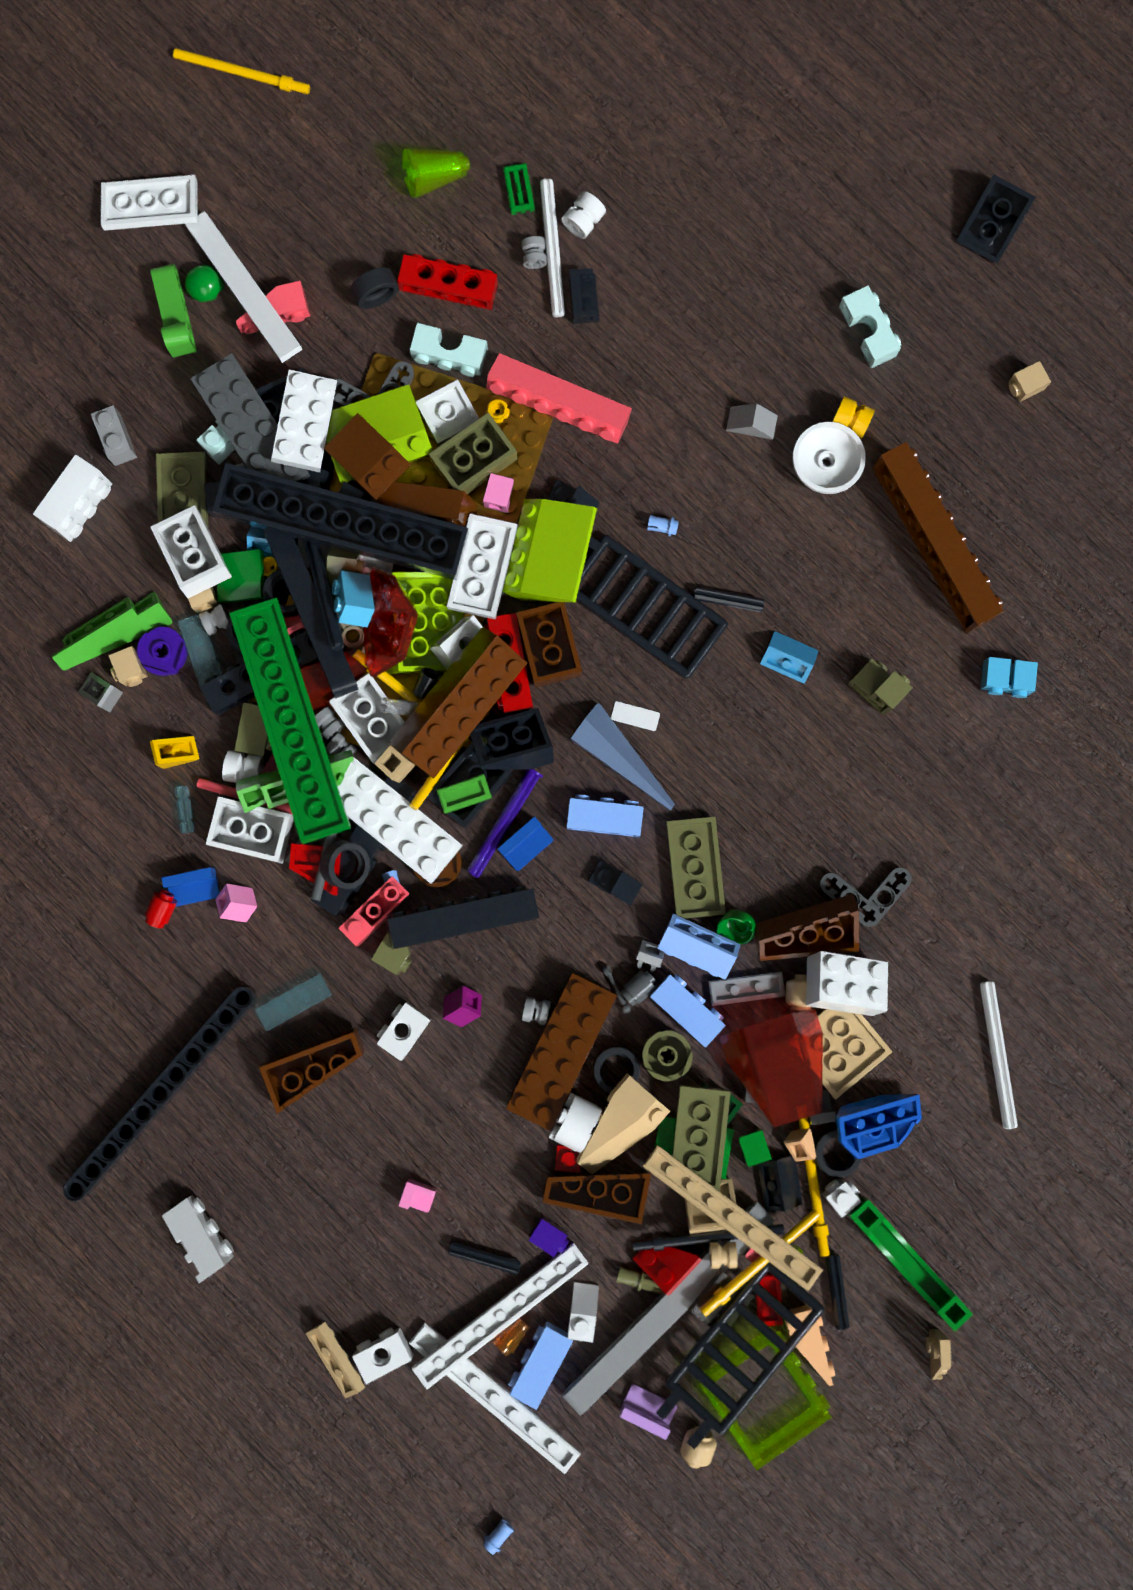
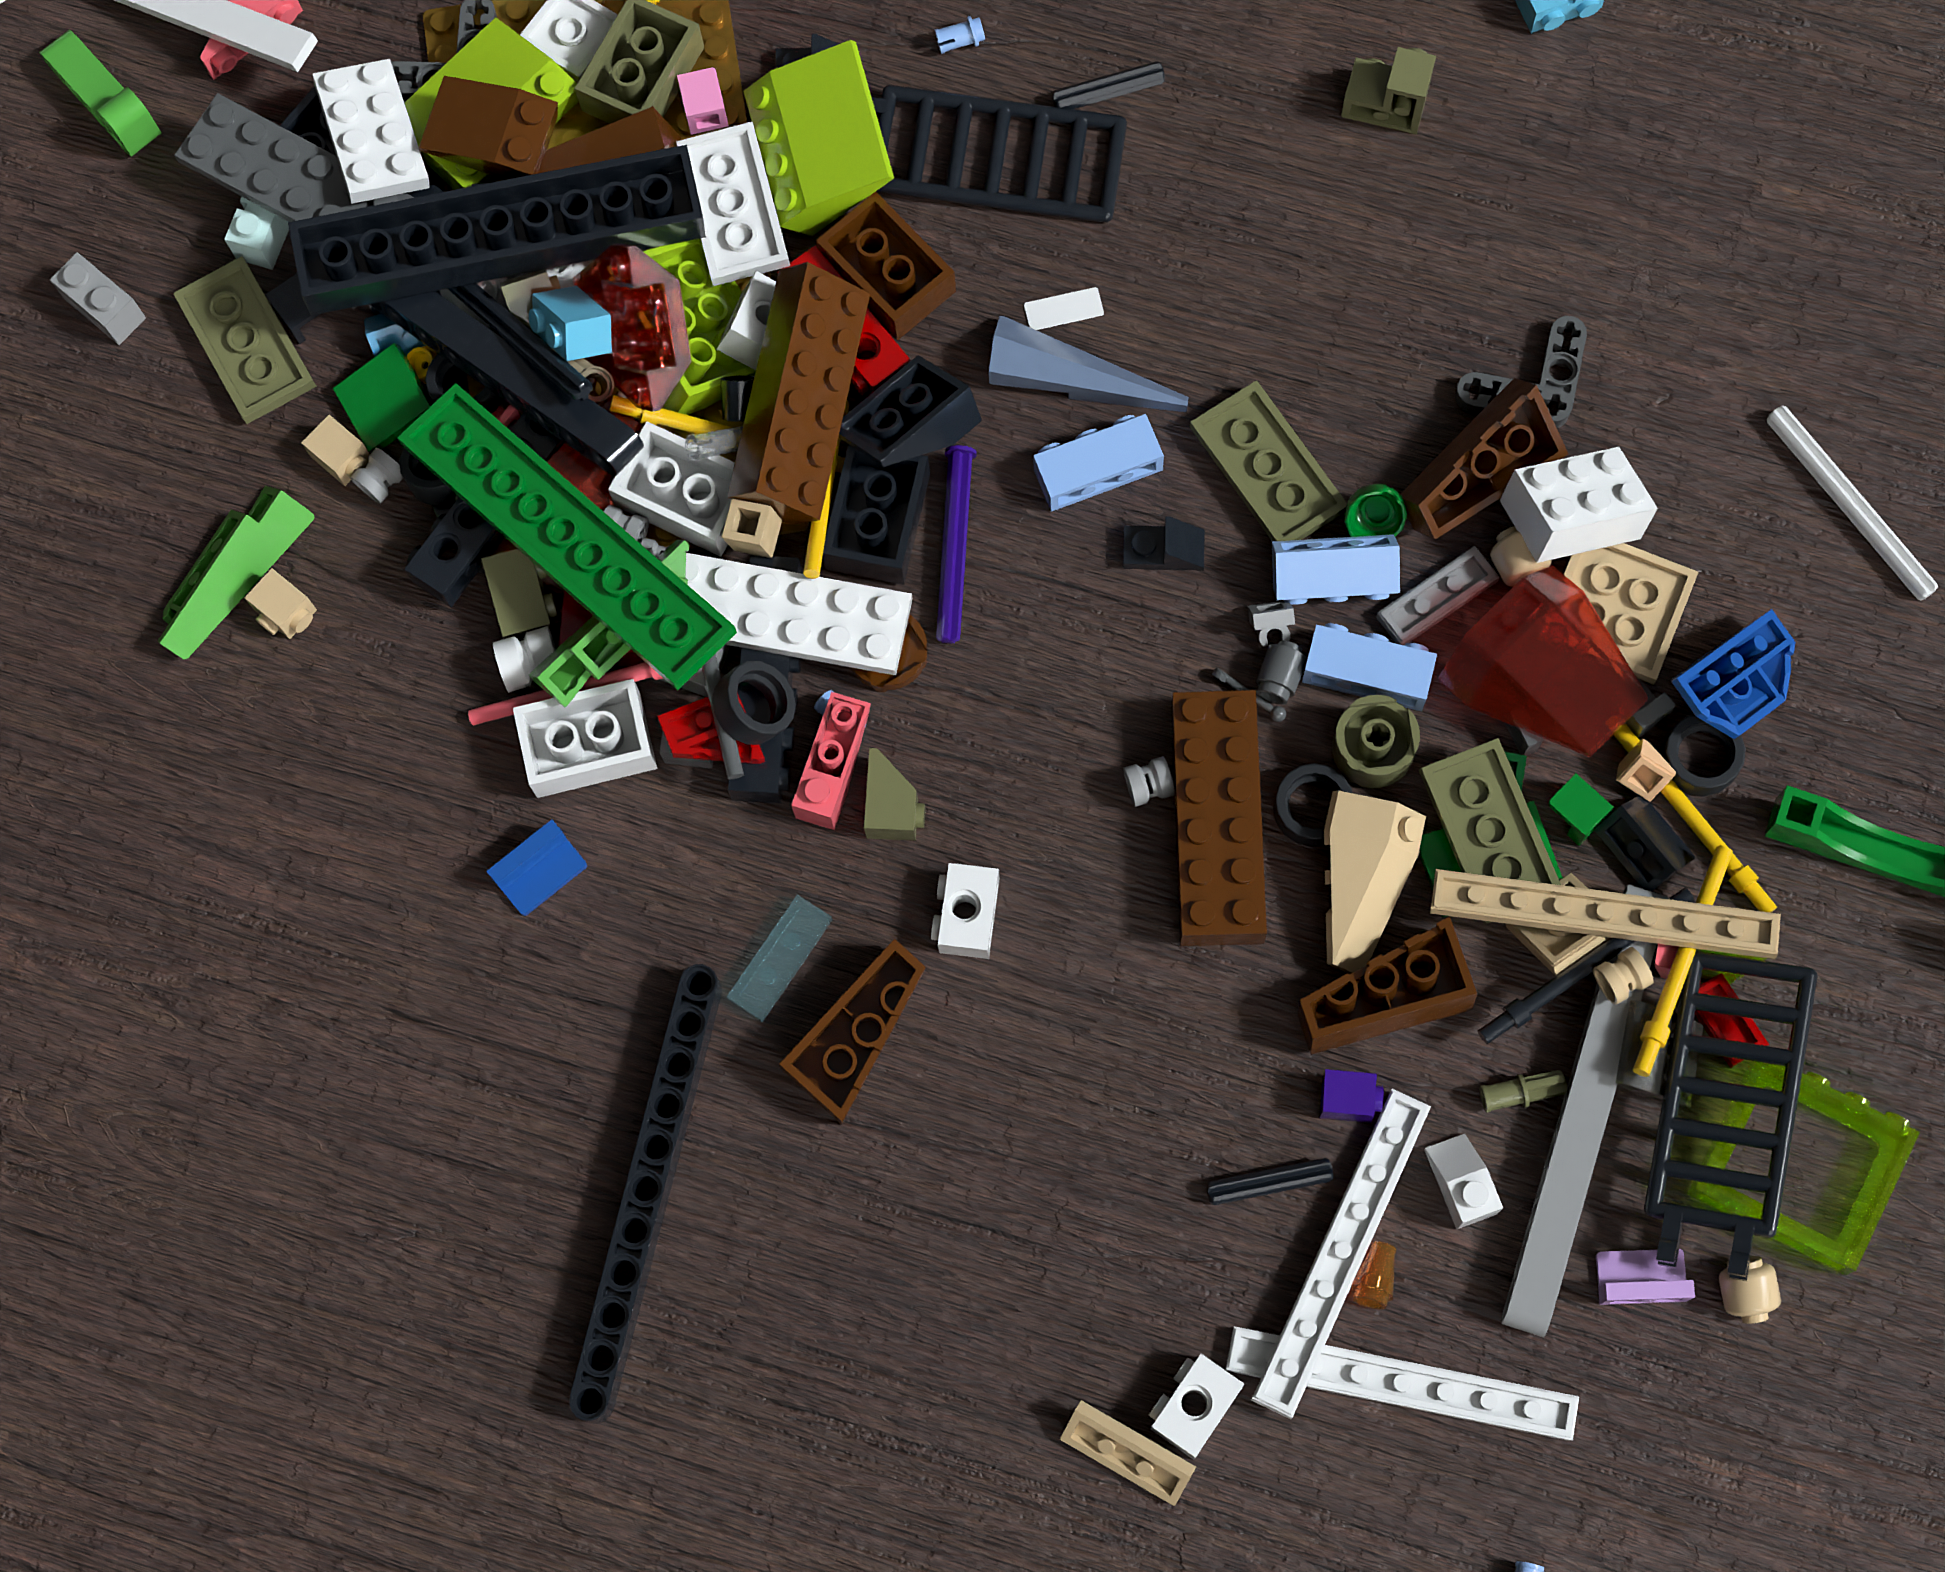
camera: 20 degrees left, 10 degrees down
(73, 498) = (81, 408): white brick -> none
(100, 692) = (257, 661): light grey slope -> none
(156, 639) = (303, 547): dark purple plate -> none
(160, 909) = (507, 921): red brick -> none
(174, 751) = (412, 688): yellow slope -> none
(184, 809) = (469, 765): clear light blue axle -> none
(191, 551) = (296, 388): white brick -> none
(198, 1237) = (818, 1373): white wedge -> none
(199, 648) = (373, 528): clear light blue tile -> none
(204, 283) = (125, 37): green hair -> none
(236, 903) = (617, 857): bright pink panel -> none
(417, 1196) = (1120, 1141): bright pink panel -> none
(462, 1006) = (1035, 832): magenta panel -> none
(463, 918) = (966, 700): black brick -> none
(464, 794) = (876, 519): bright green tile -> none
(525, 844) = (1002, 559): blue panel -> none
(539, 1365) = (1443, 1292): light blue brick -> none
(566, 1159) = (1311, 970): red plate -> none
(575, 1123) = (1297, 904): white brick -> none
(667, 1266) = (1548, 1044): red wing -> none
(789, 657) = (1239, 121): dark azure panel -> none
(813, 1345) = (1831, 1050): light nougat slope -> none
(837, 1291) = (1820, 955): black axle -> none
(842, 1196) = (1745, 811): white brick -> none

